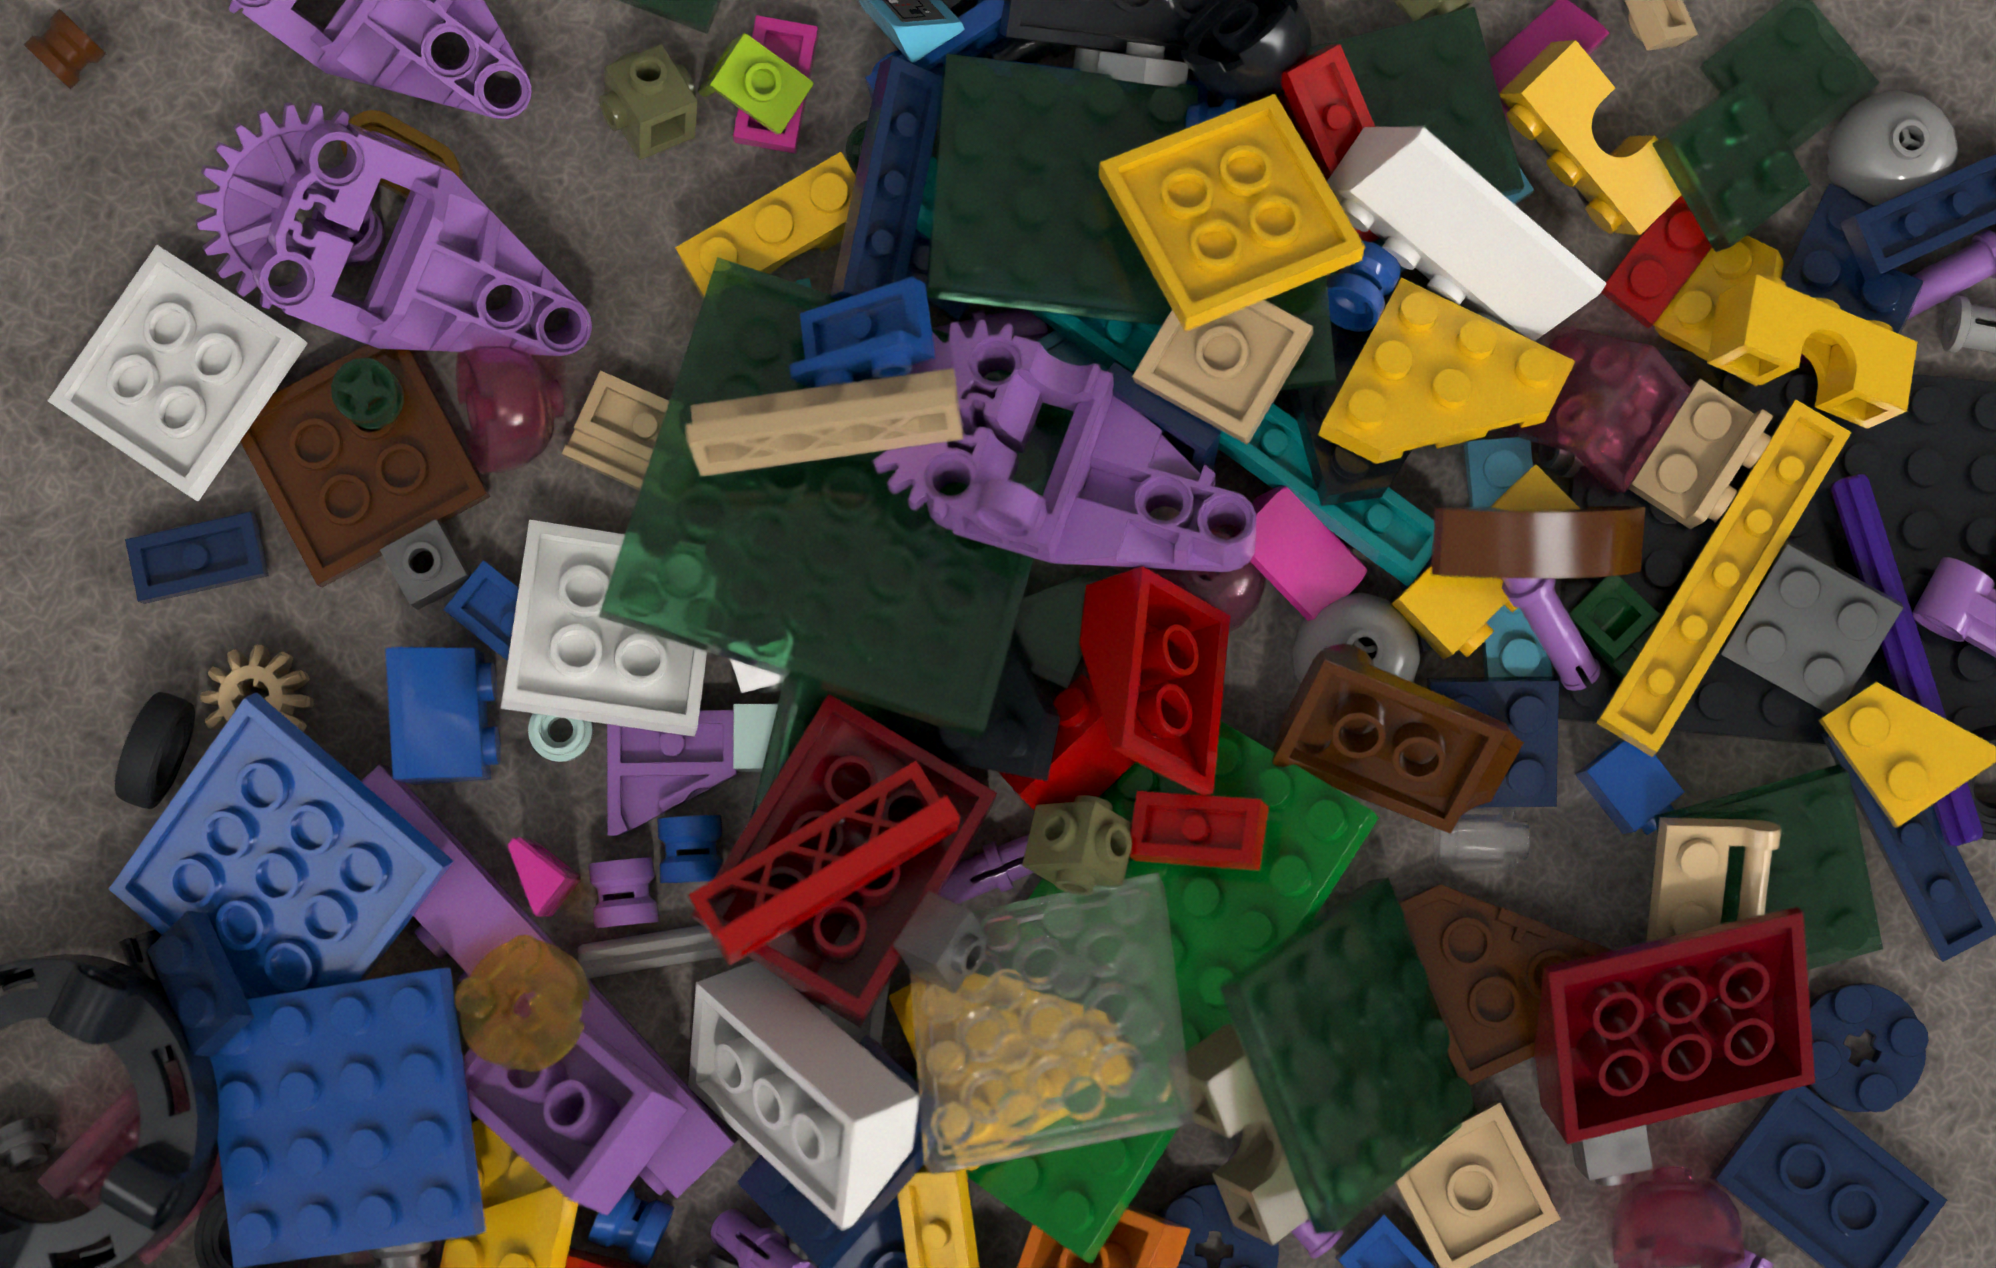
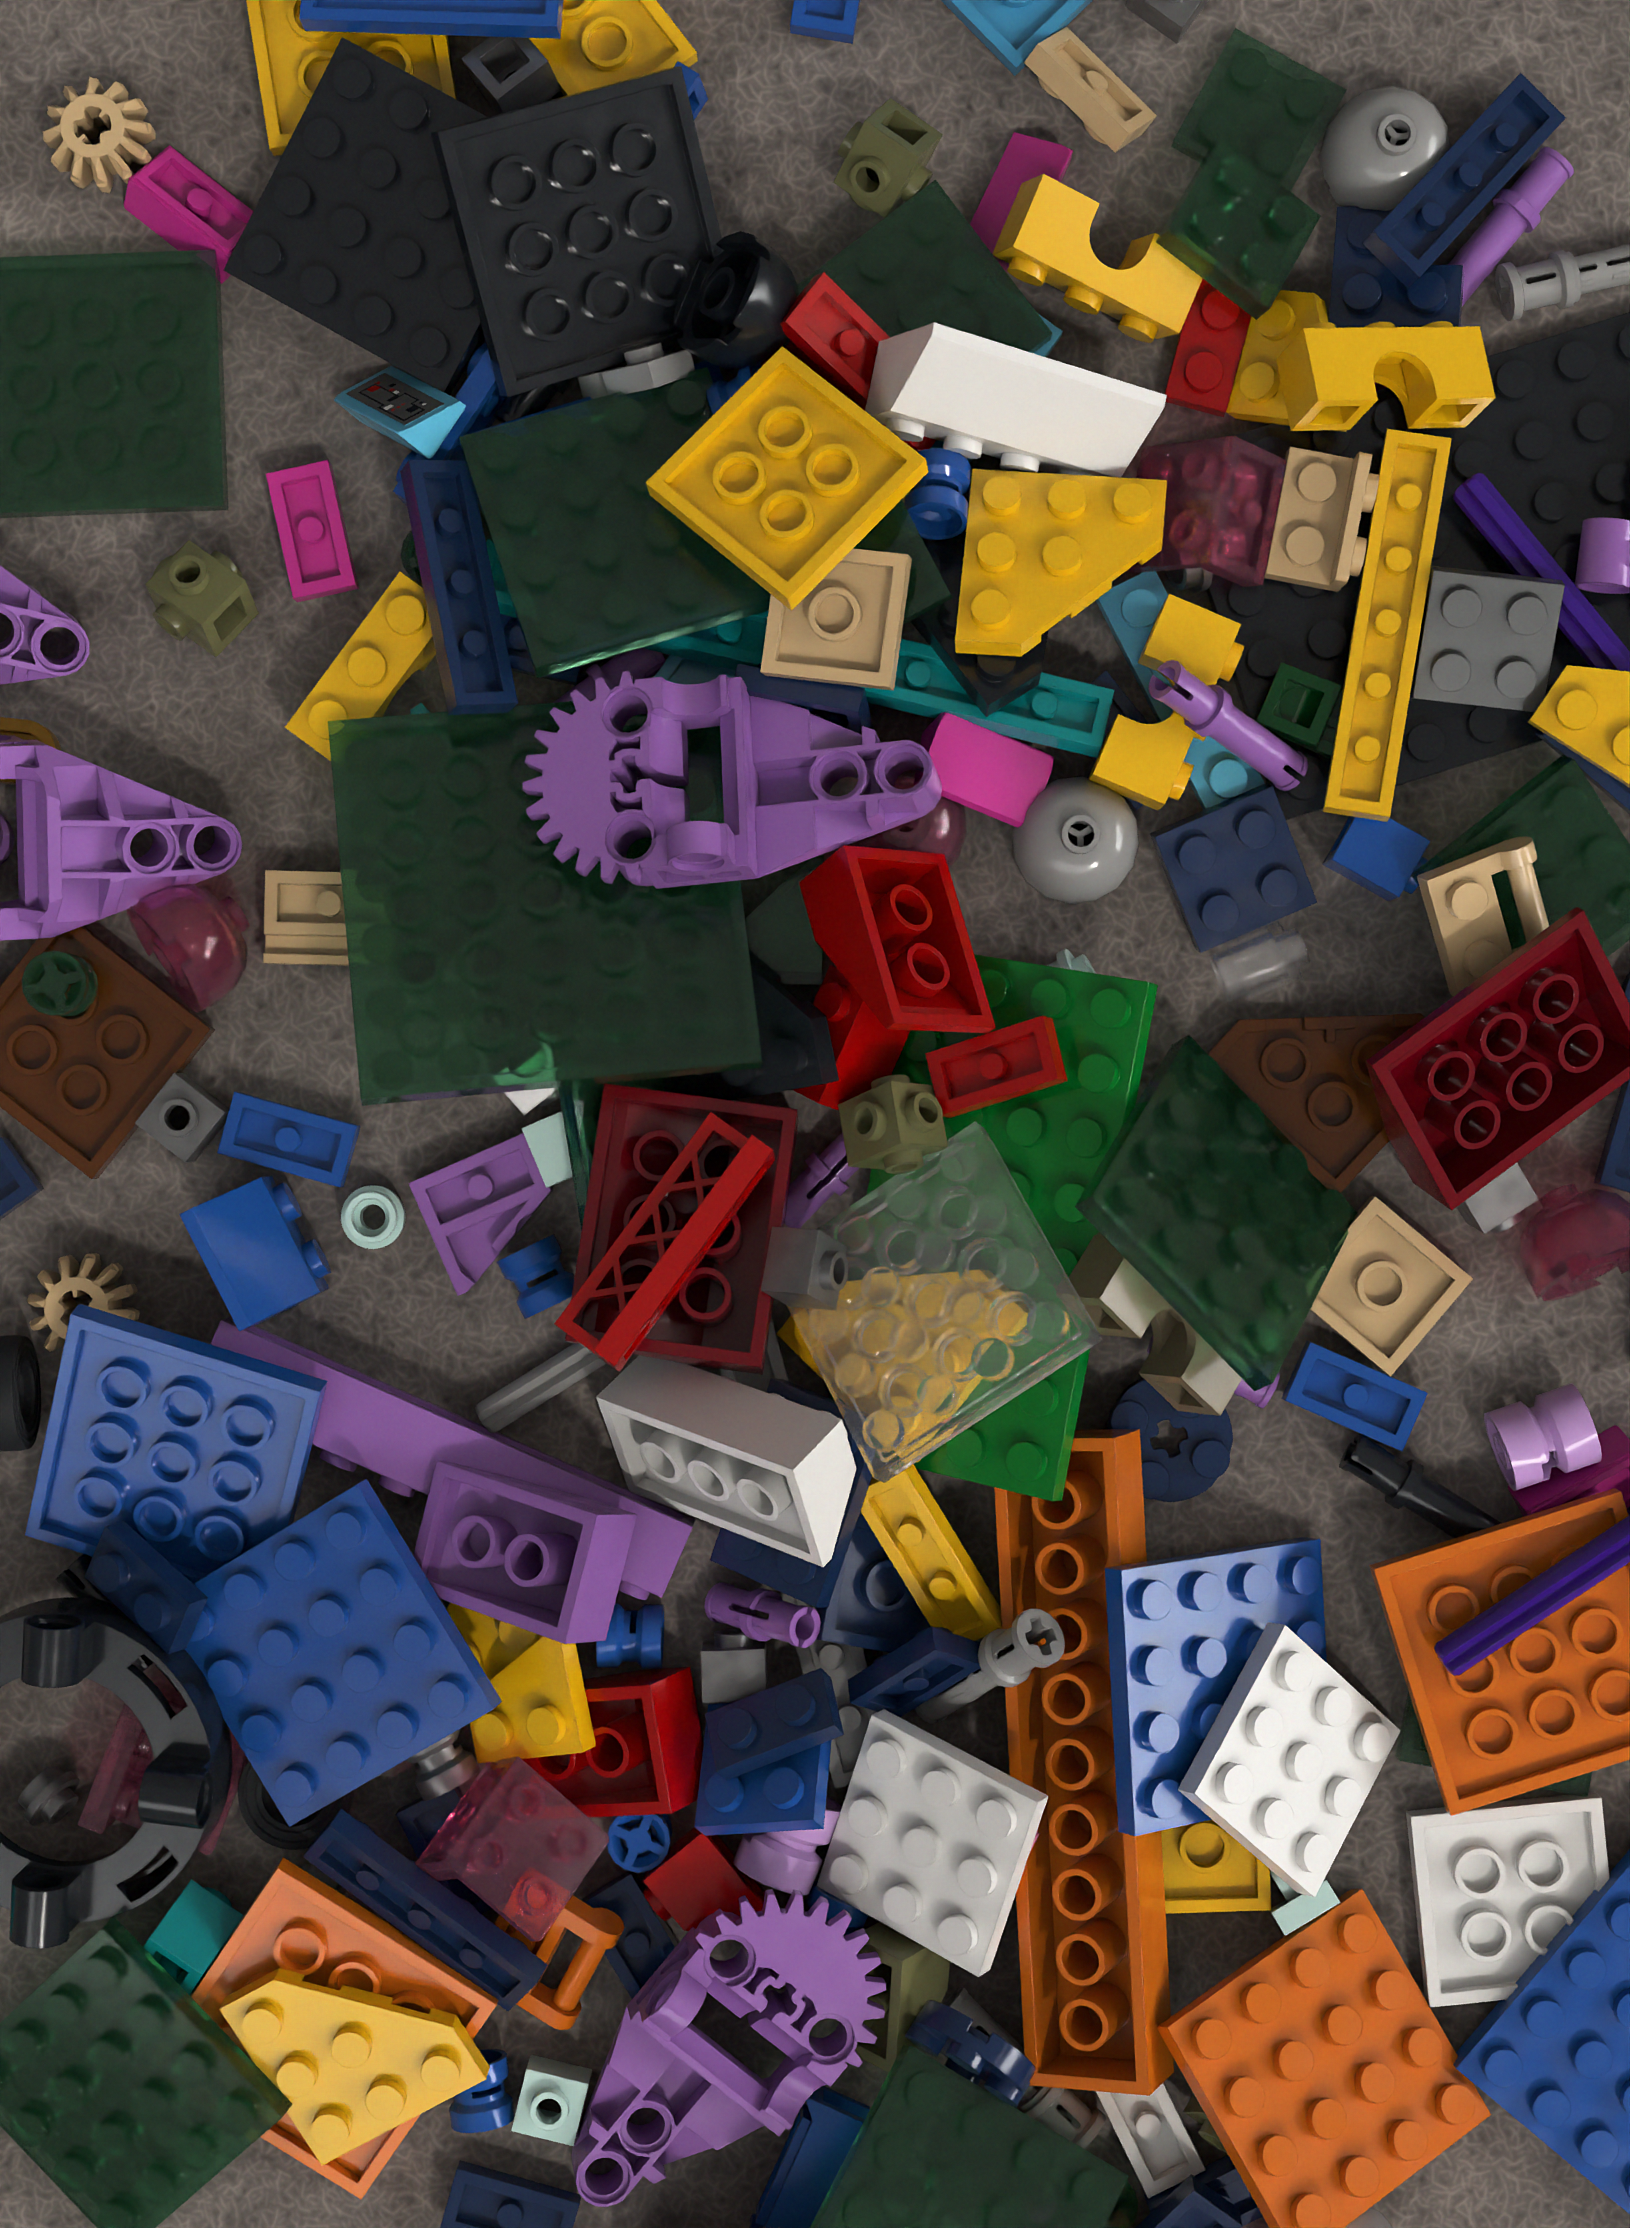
camera: 20 degrees left, 5 degrees up
(497, 983) = (414, 1480): clear yellow plate -> none
(543, 876) = (413, 1358): dark pink slope -> none
(585, 666) = (371, 1153): white plate -> none
(621, 878) = (488, 1328): medium lavender wheel -> none
(757, 83) = (295, 538): lime bracket -> none
(825, 422) = (493, 836): tan fence -> none
(866, 336) = (496, 741): blue bracket -> none
(1393, 740) = (1141, 907): reddish brown slope -> none
(1537, 542) = (1201, 669): reddish brown slope -> none

